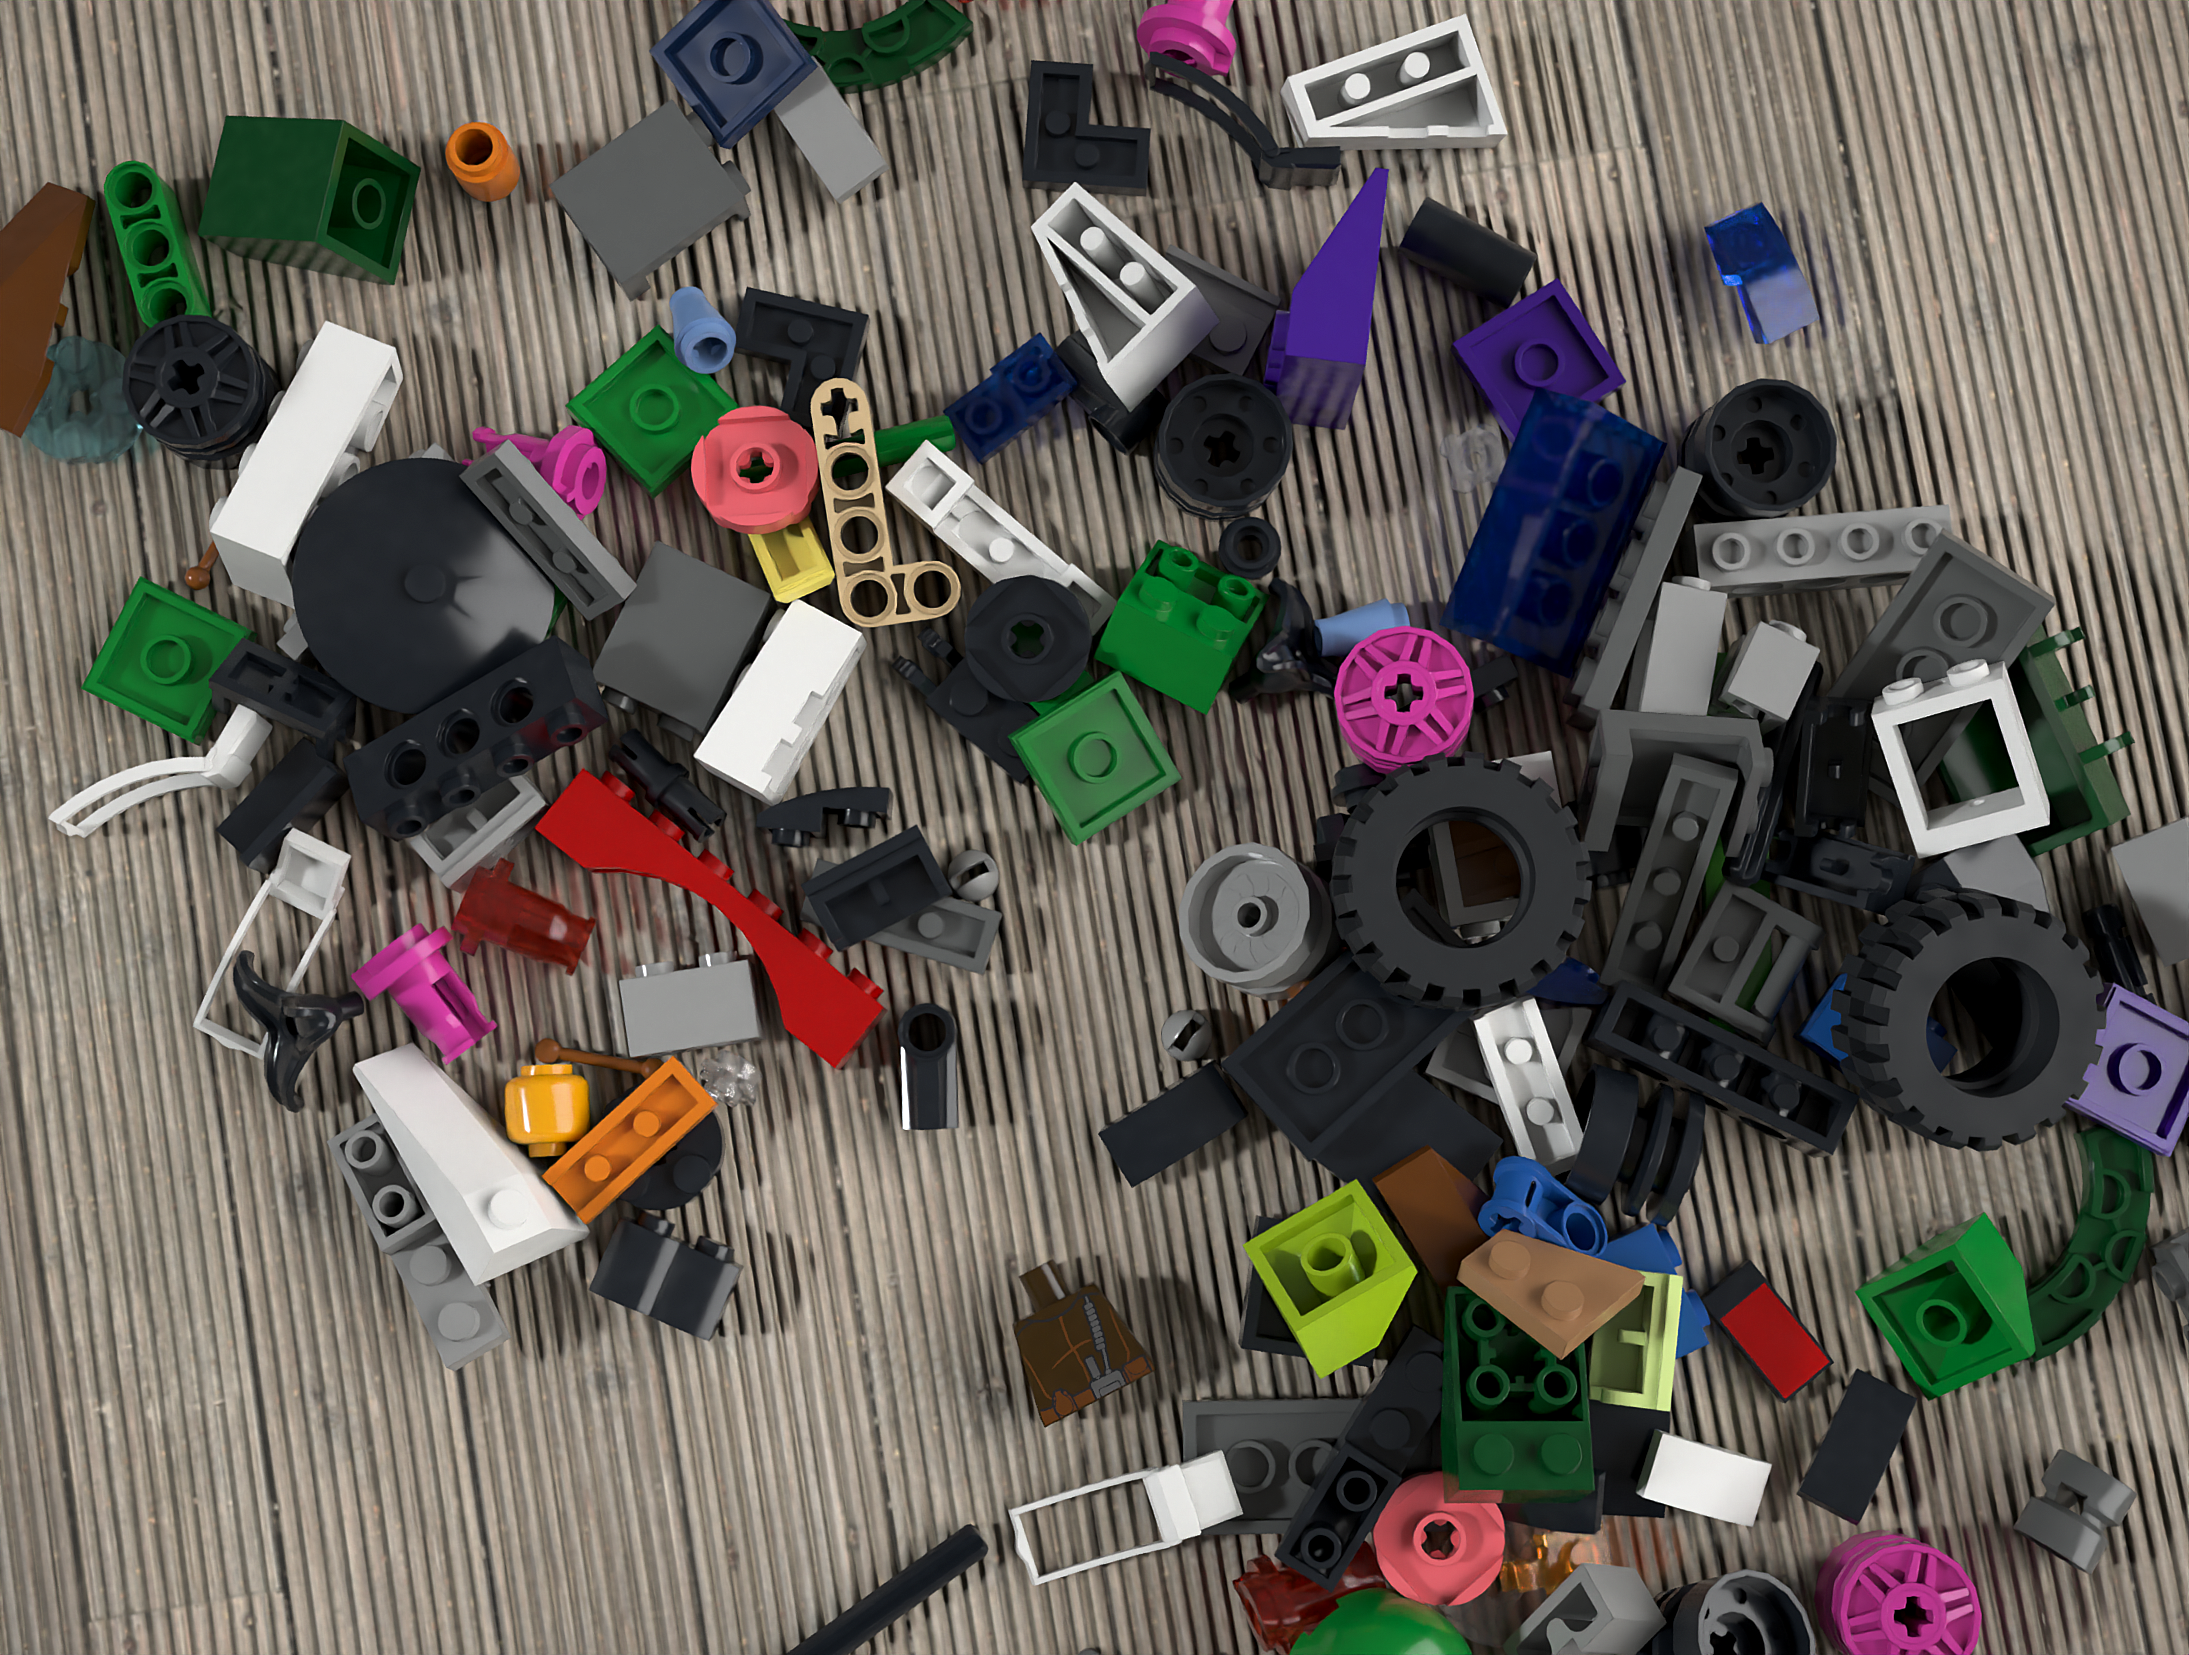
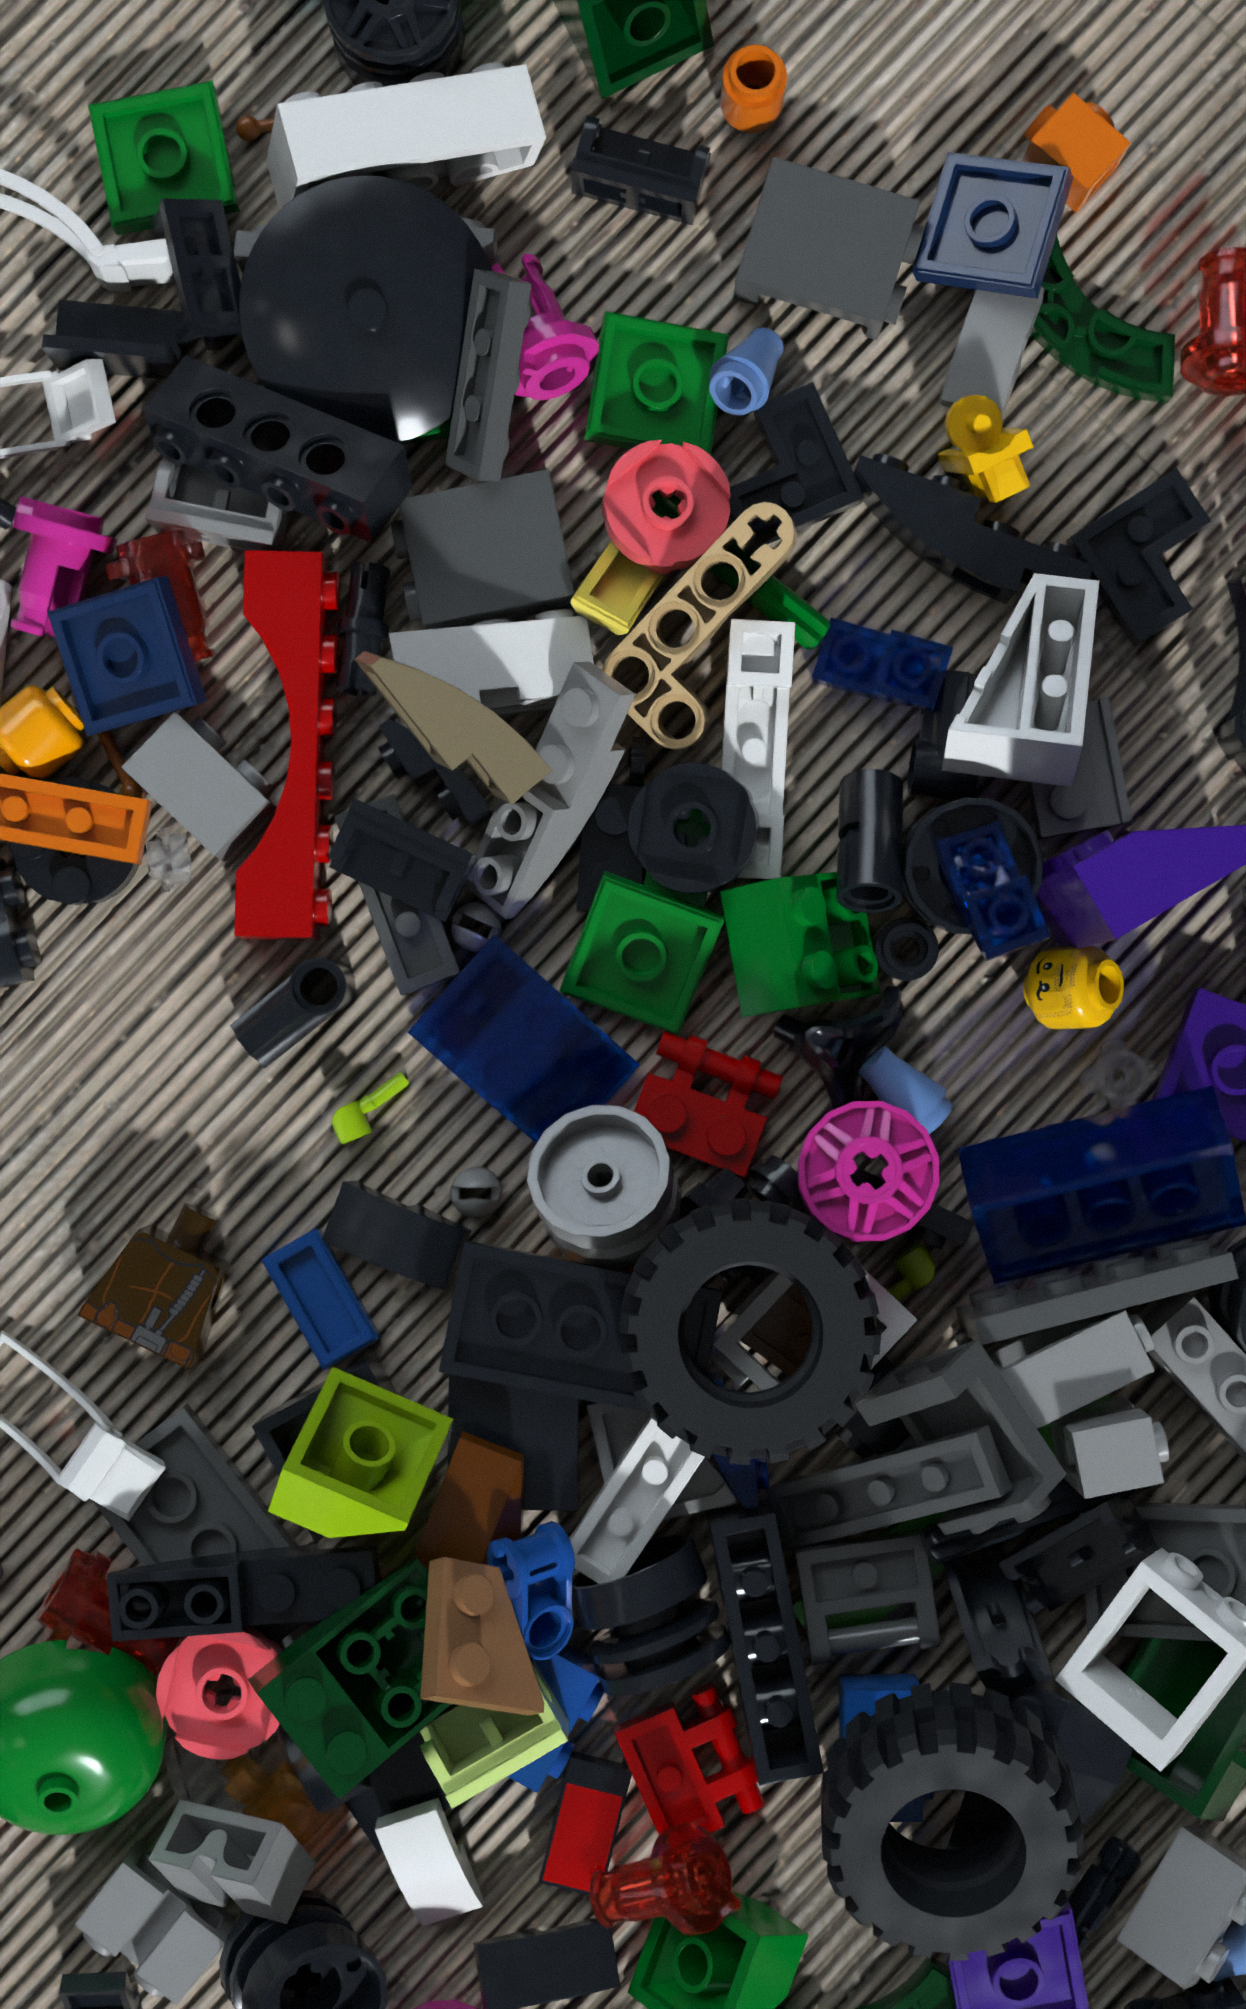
camera: 50 degrees right, 5 degrees up
(477, 298) = (639, 173): none -> black hinge
(545, 985) = (127, 655): none -> dark blue plate
(809, 757) = (457, 727): none -> dark tan slope
(908, 193) = (987, 451): none -> yellow hips
(918, 729) = (537, 830): none -> light grey slope
(936, 275) = (938, 526): none -> black slope
(1052, 1092) = (350, 1120): none -> lime hand
(1094, 904) = (521, 1042): none -> clear blue slope
(1143, 510) = (870, 841): none -> black pin
(1178, 1225) = (321, 1298): none -> blue tile
(1255, 442) = (990, 891): none -> clear blue slope
(1266, 814) = (699, 1123): none -> red plate
(1378, 439) = (1073, 987): none -> yellow head
(1509, 729) = (916, 1268): none -> lime hand
(1774, 1229) = (669, 1772): none -> red plate
(1864, 1278) = (681, 1880): none -> clear red piece

